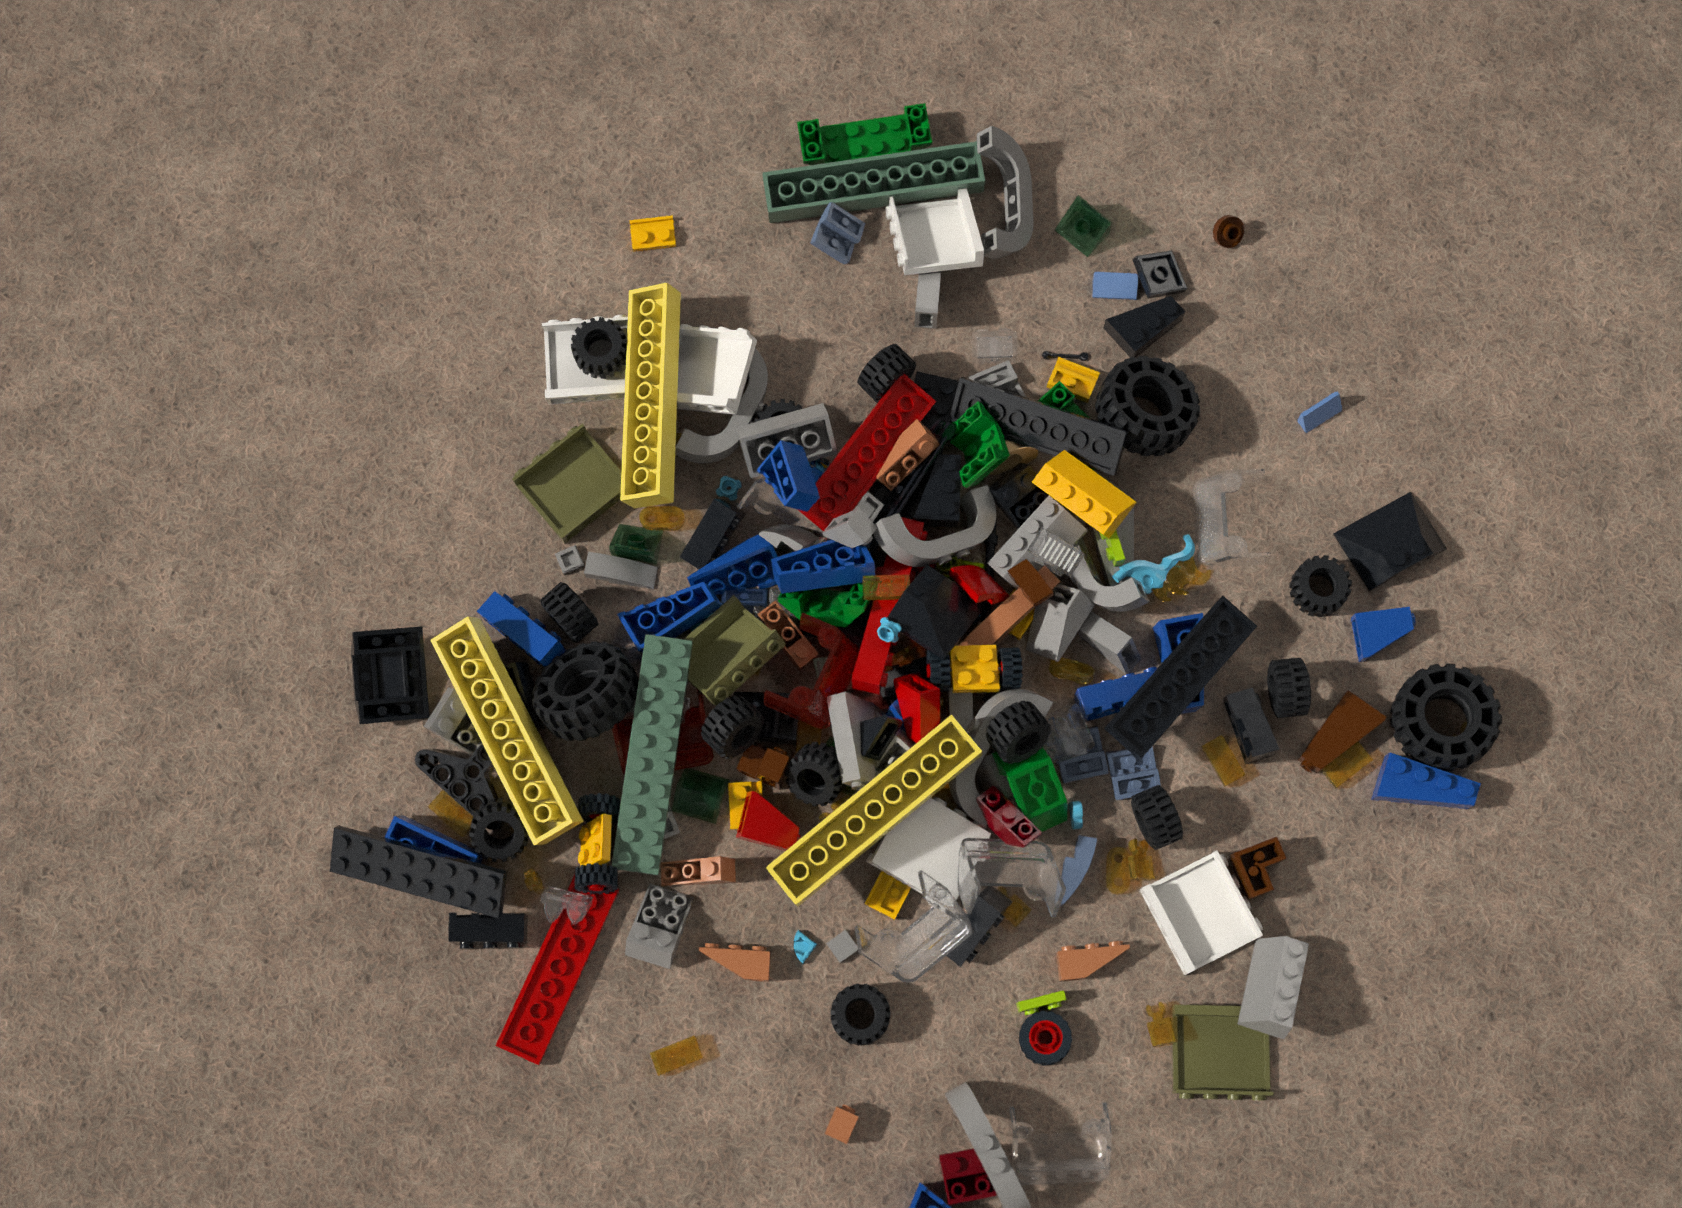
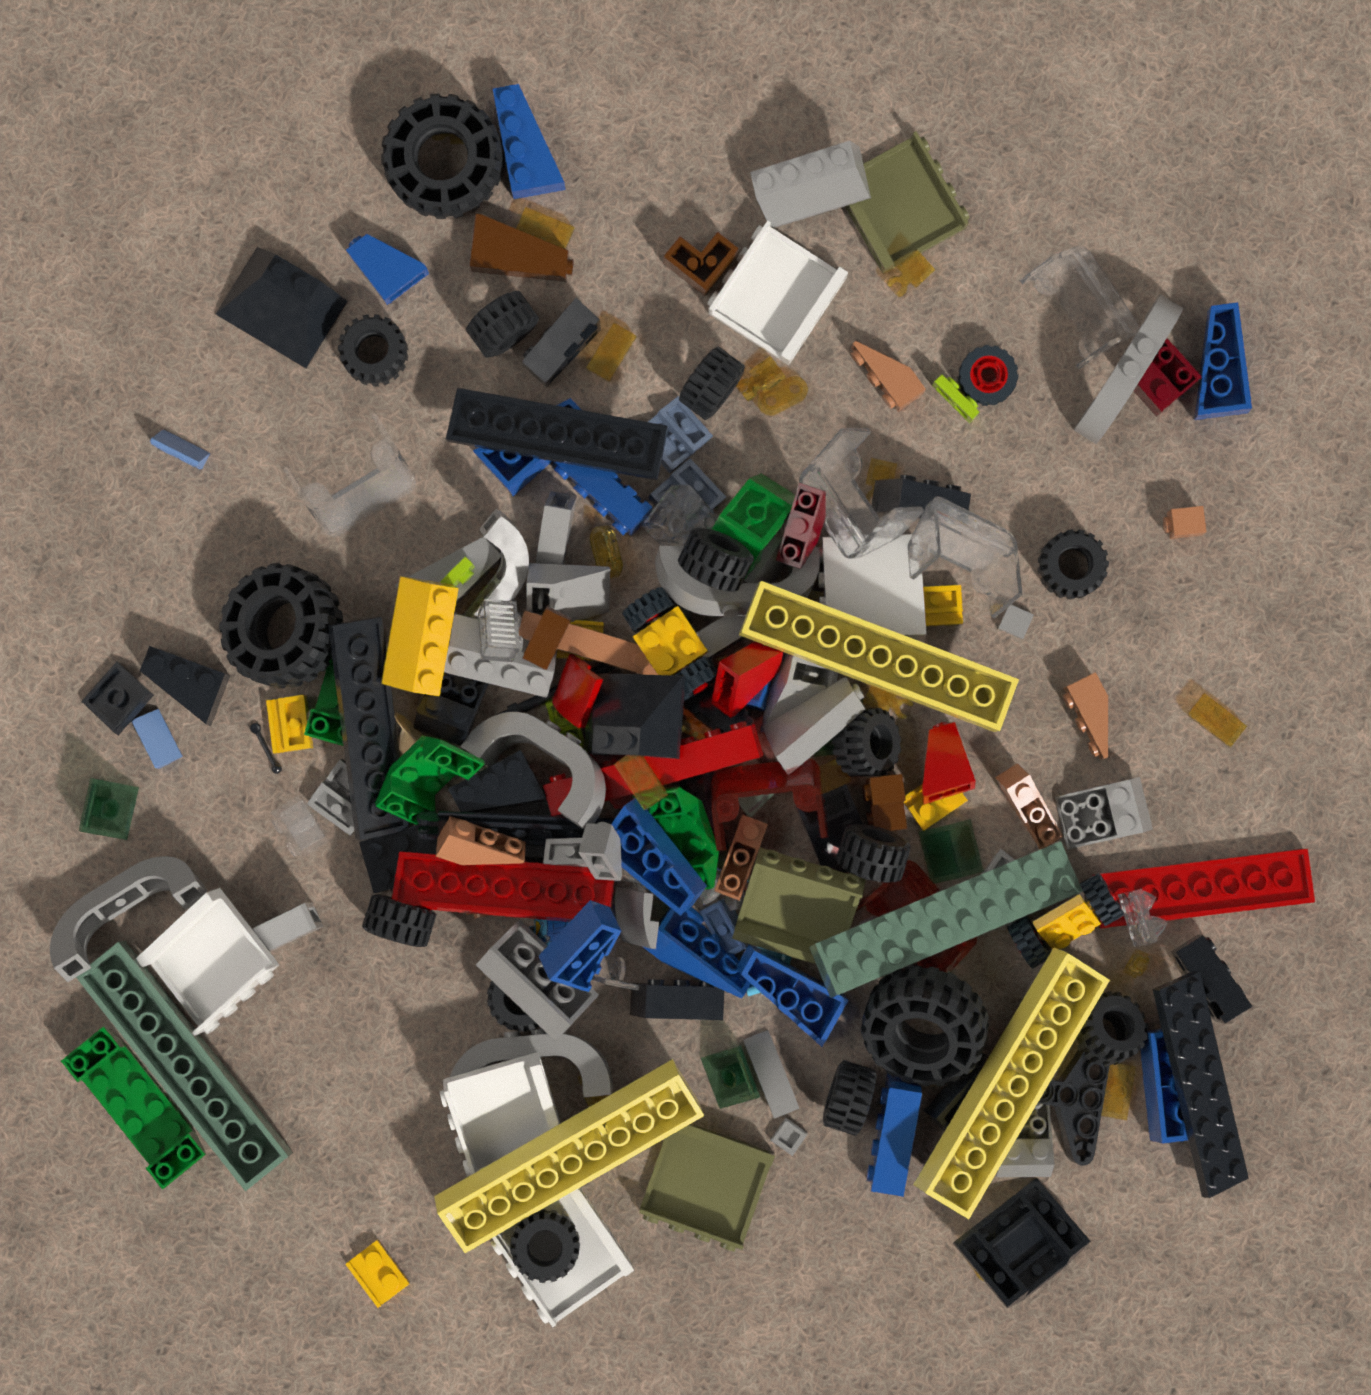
camera: 125 degrees left, 10 degrees up
(662, 518) = (690, 1065): clear yellow plate -> none
(728, 482) = (619, 1009): medium azure plate -> none
(803, 946) = (1038, 660): medium azure tile -> none
(837, 233) = (266, 1068): sand blue slope -> none
(877, 735) = (799, 700): black slope -> none
(888, 630) = (688, 748): medium azure plate -> none
(1076, 814) = (751, 466): medium azure tile -> none
(1076, 868) = (804, 435): sand blue slope -> none
(1167, 576) = (450, 508): piece -> none
(1228, 231) = (26, 651): reddish brown plate -> none

